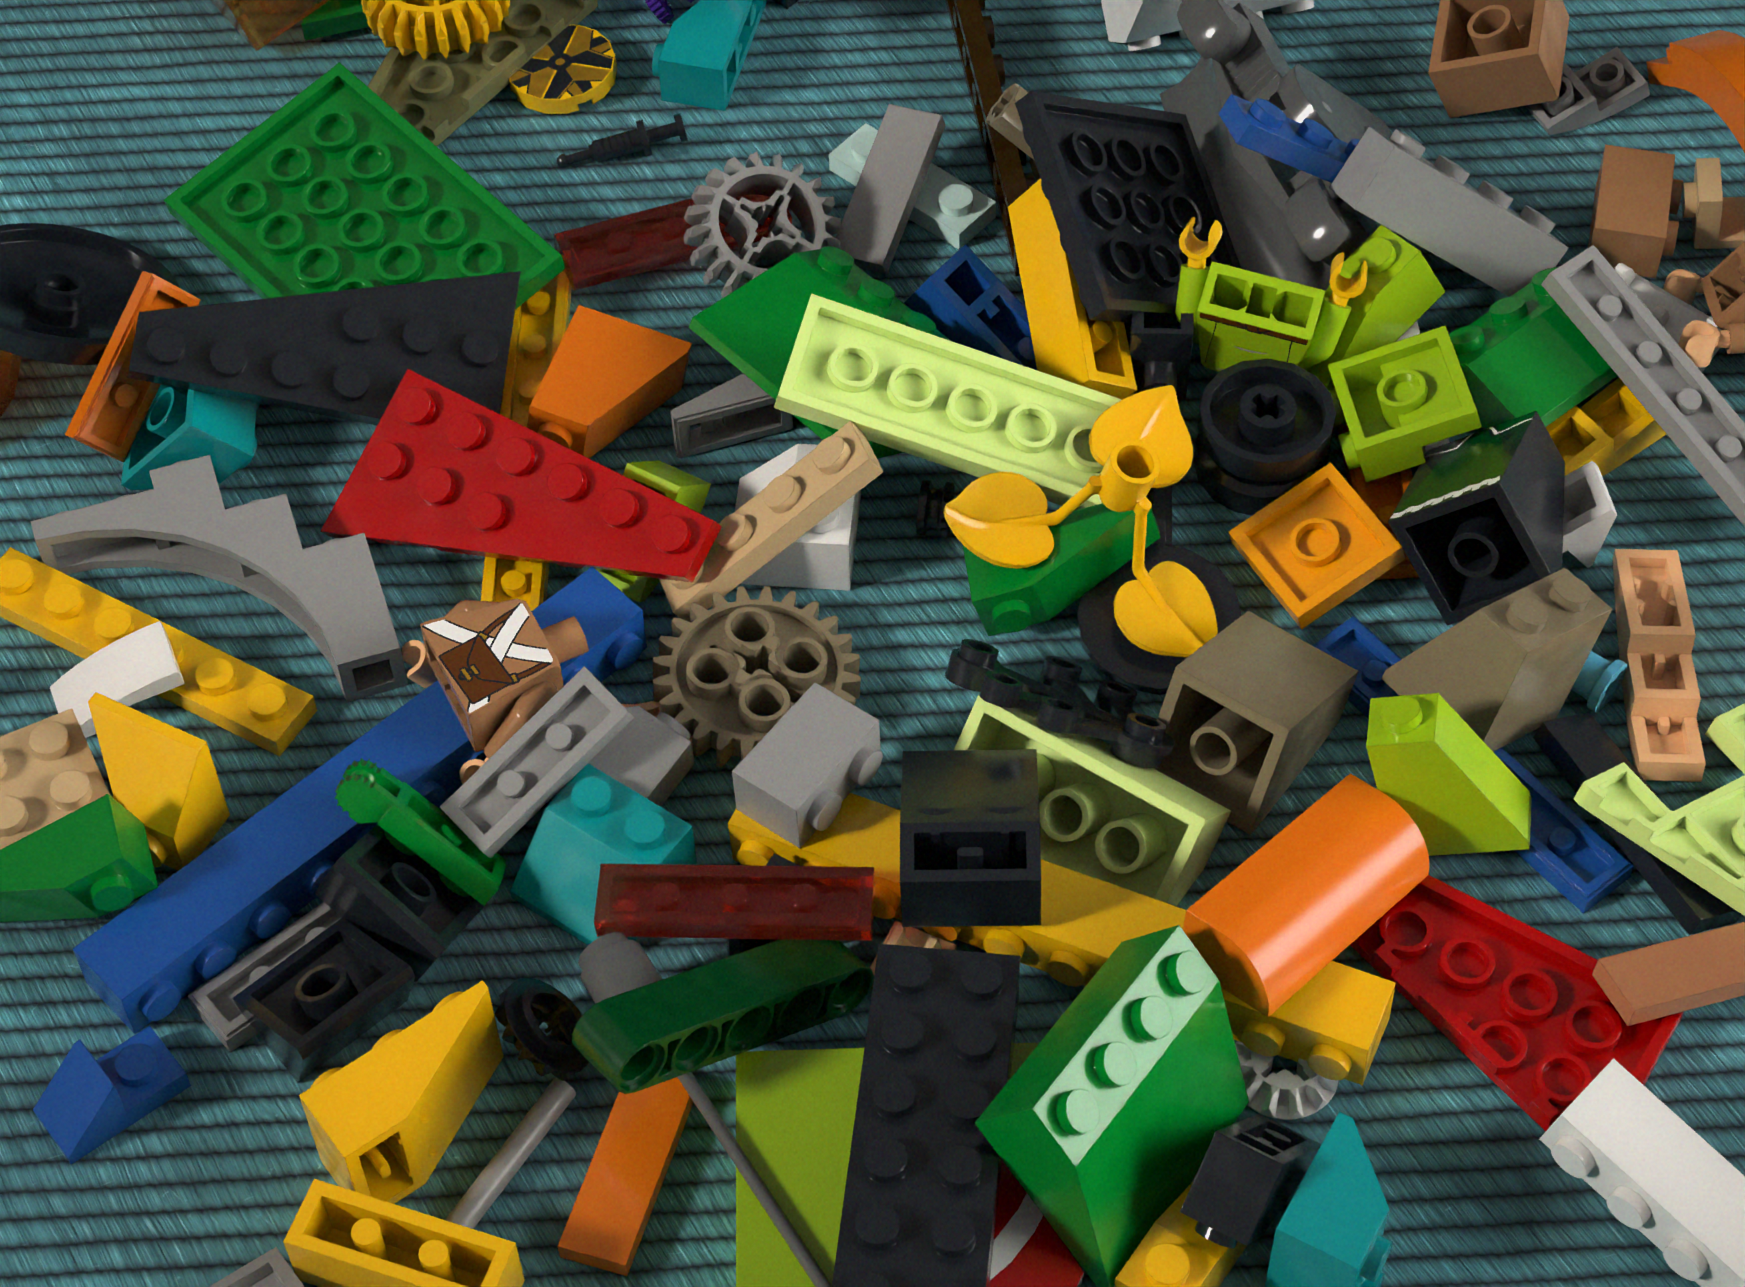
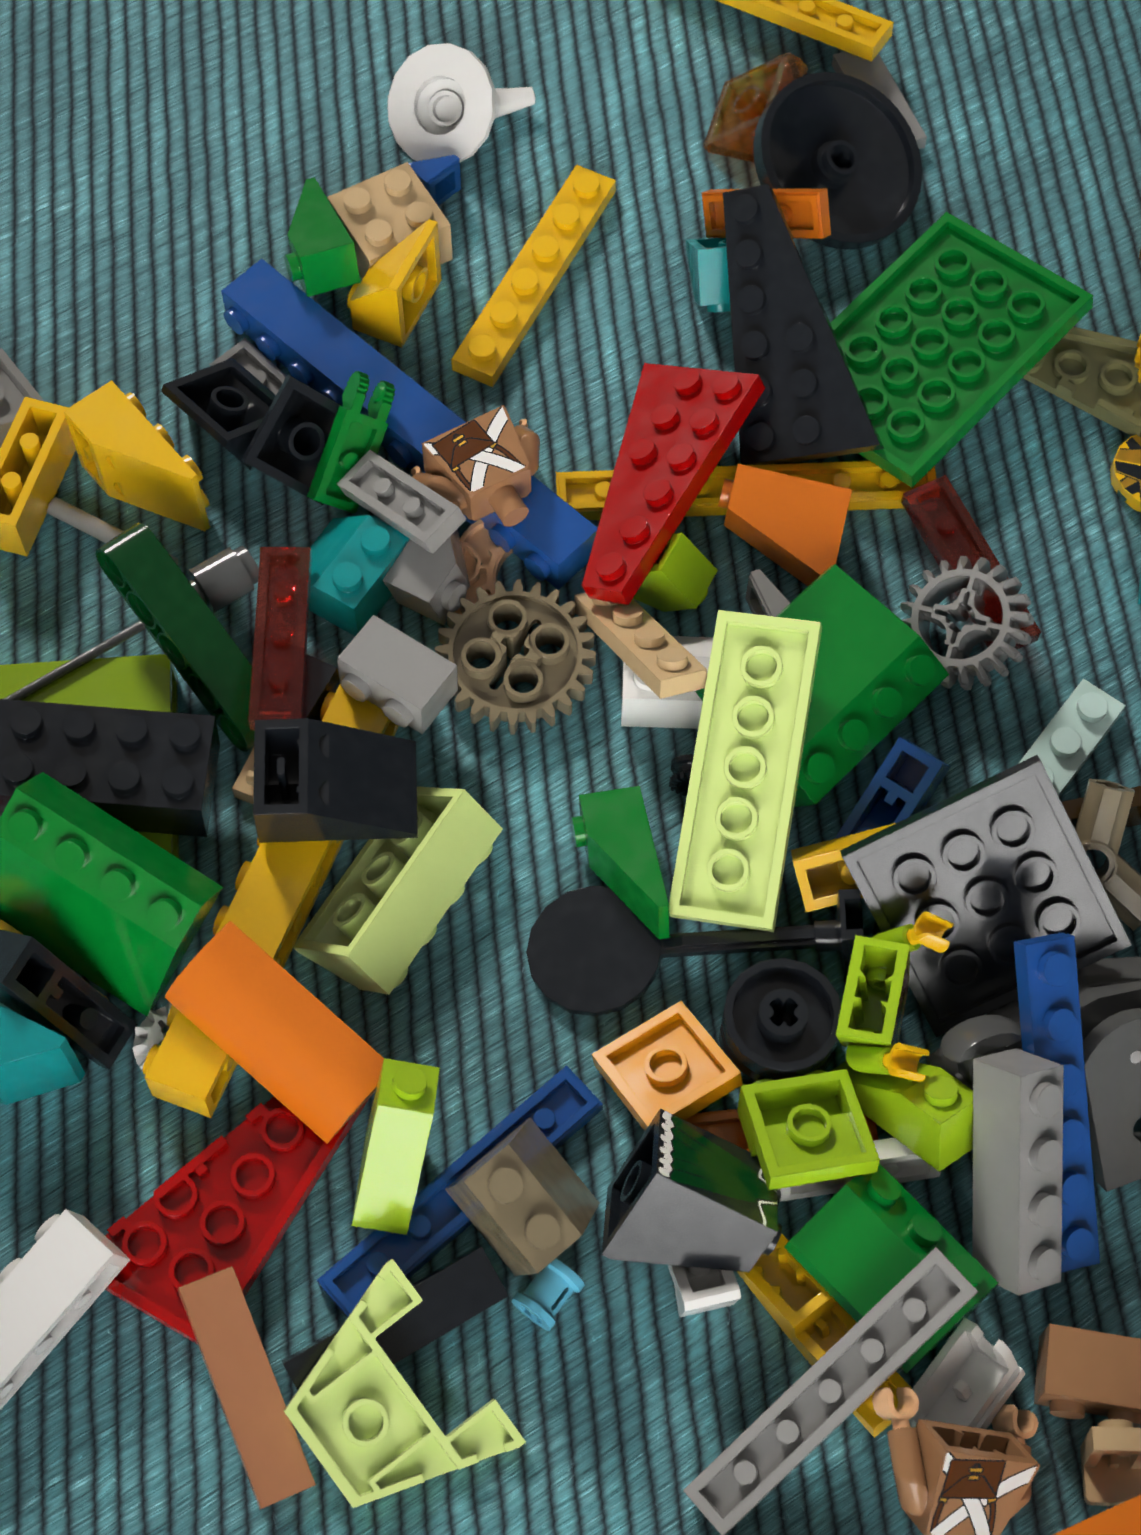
camera: 85 degrees right, 10 degrees up
(104, 1096) = (178, 310): blue slope -> none
(122, 671) = (497, 259): white slope -> none
(253, 546) = (588, 369): light grey arch -> none
(524, 1009) = (198, 519): black gear -> none
(625, 1177) = (84, 606): orange tile -> none
(626, 143) = (1081, 536): black piece -> none
(889, 186) = (1038, 720): light grey tile -> none
(1064, 705) = (478, 865): black plant -> none
(1140, 448) = (731, 912): yellow plant -> none
(1251, 715) = (489, 1012): dark tan slope -> none
(1660, 678) = (564, 1359): light nougat slope -> none

